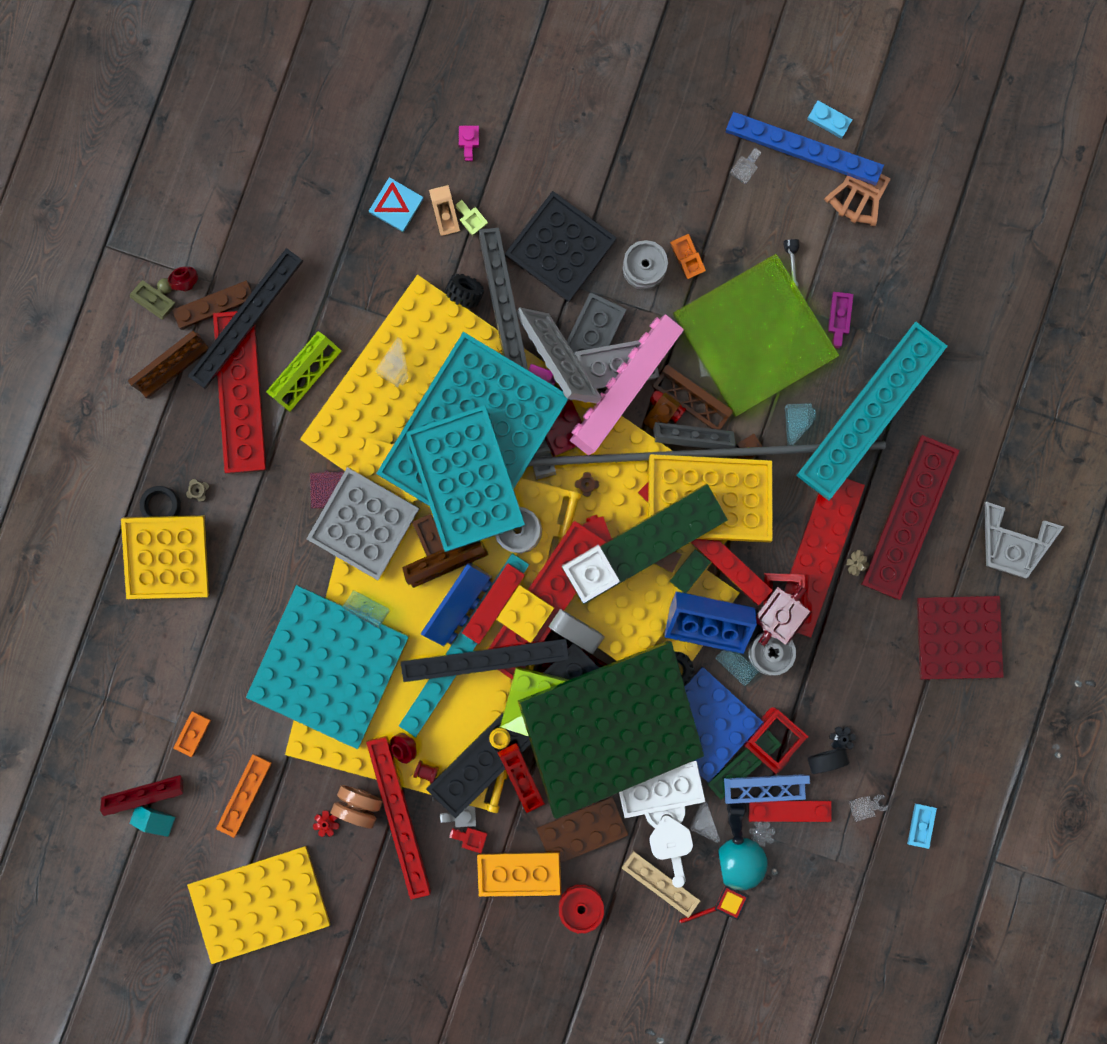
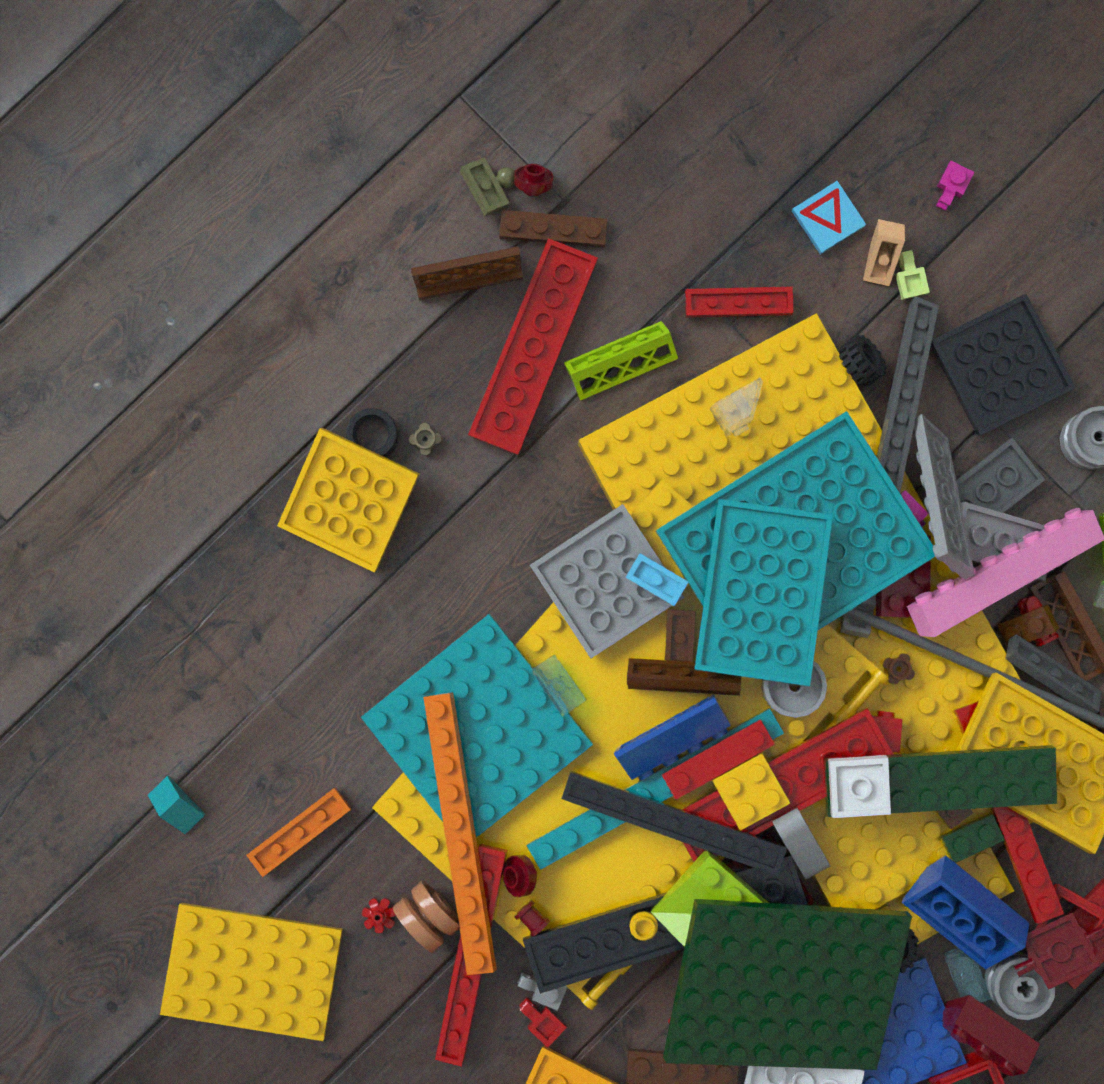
camera: 25 degrees right, 0 degrees up
(141, 795) = (178, 770): dark red plate -> none
(192, 734) = (274, 726): orange plate -> none
(245, 318) = (585, 263): black plate -> none
(322, 487) = (576, 512): clear pink piece -> none
(349, 740) = (460, 834): none -> orange plate
(363, 292) = (739, 302): none -> red plate
(393, 505) = (657, 579): none -> medium azure plate
(521, 778) = (643, 984): red plate -> none
(765, 694) = (989, 1035): none -> dark red slope

